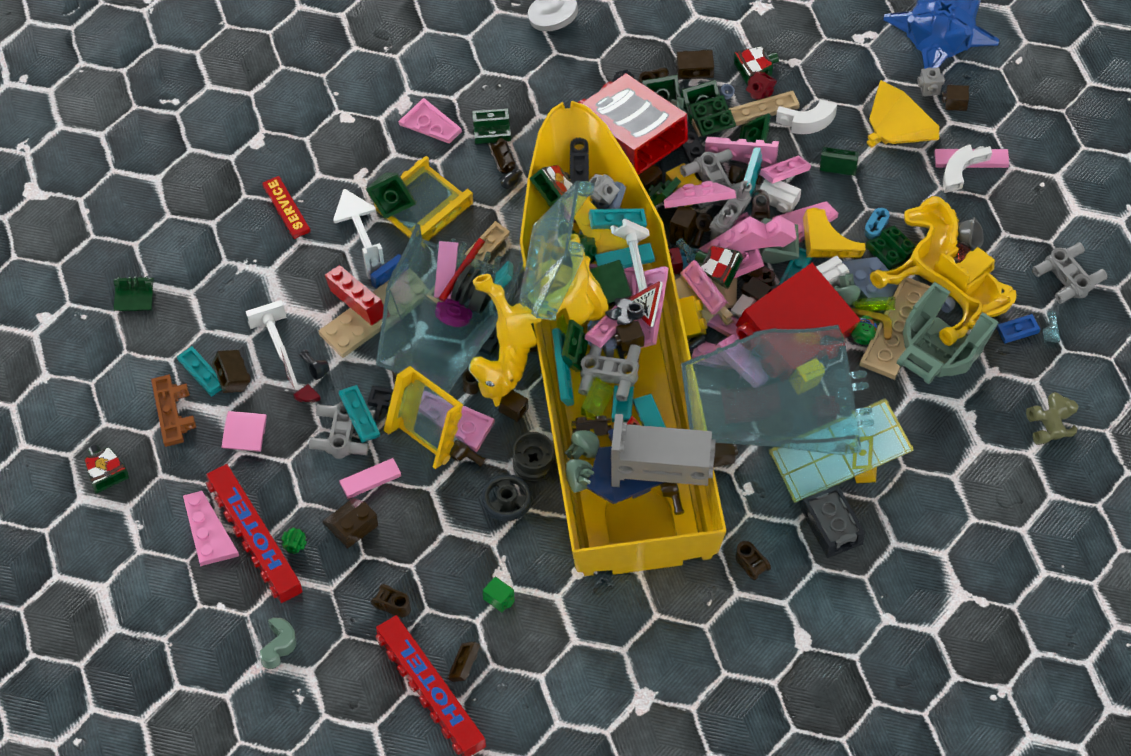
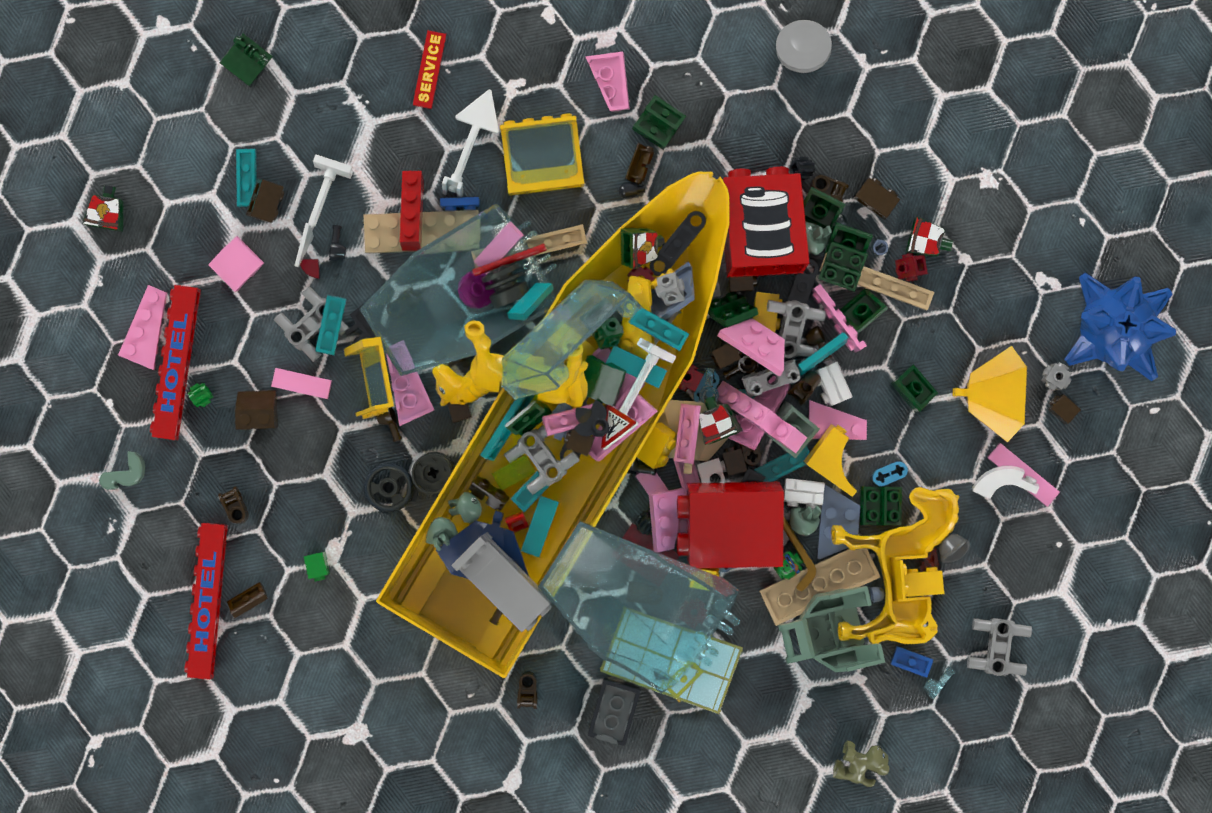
camera: 40 degrees right, 30 degrees up
(170, 422) = (200, 181): dark orange hinge -> none
(390, 194) = (513, 134): dark green slope -> none
(785, 169) = (857, 366): bright pink tile -> none
(807, 121) = (922, 333): white arch -> none
(875, 304) = (817, 550): clear neon green slope -> none

